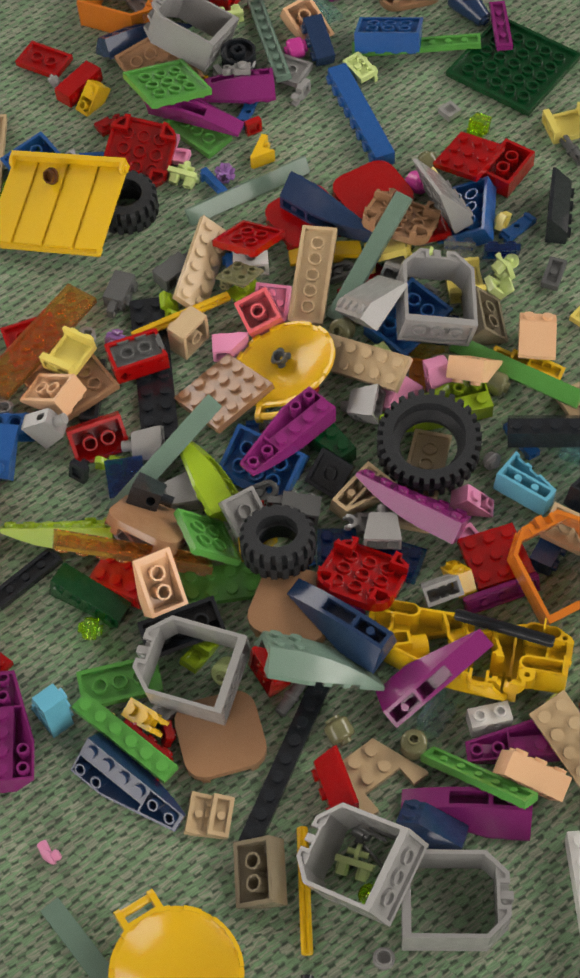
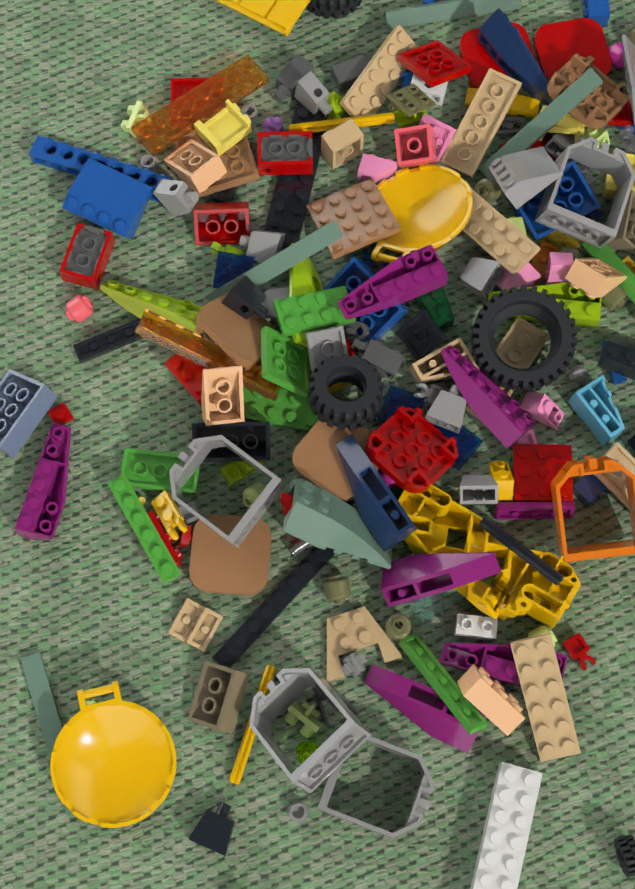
camera: 15 degrees right, 15 degrees up
(48, 855) = (44, 610): bright pink arm -> none
(53, 709) = (90, 480): medium azure wedge -> none
(79, 470) = (195, 249): black tile -> none
(88, 595) = (160, 379): dark green wedge -> none
(90, 628) = (151, 410): clear neon green gear -> none
(126, 782) = (132, 569): dark blue wedge -> none
(144, 298) = (313, 94): none -> light grey torso
(216, 483) = (311, 311): none -> bright green plate
(277, 354) = (416, 196): dark grey plate -> none
(333, 779) = (313, 640): red slope -> none
(384, 795) = (354, 664): none -> light grey gear
(433, 825) = (383, 713): dark blue slope -> none

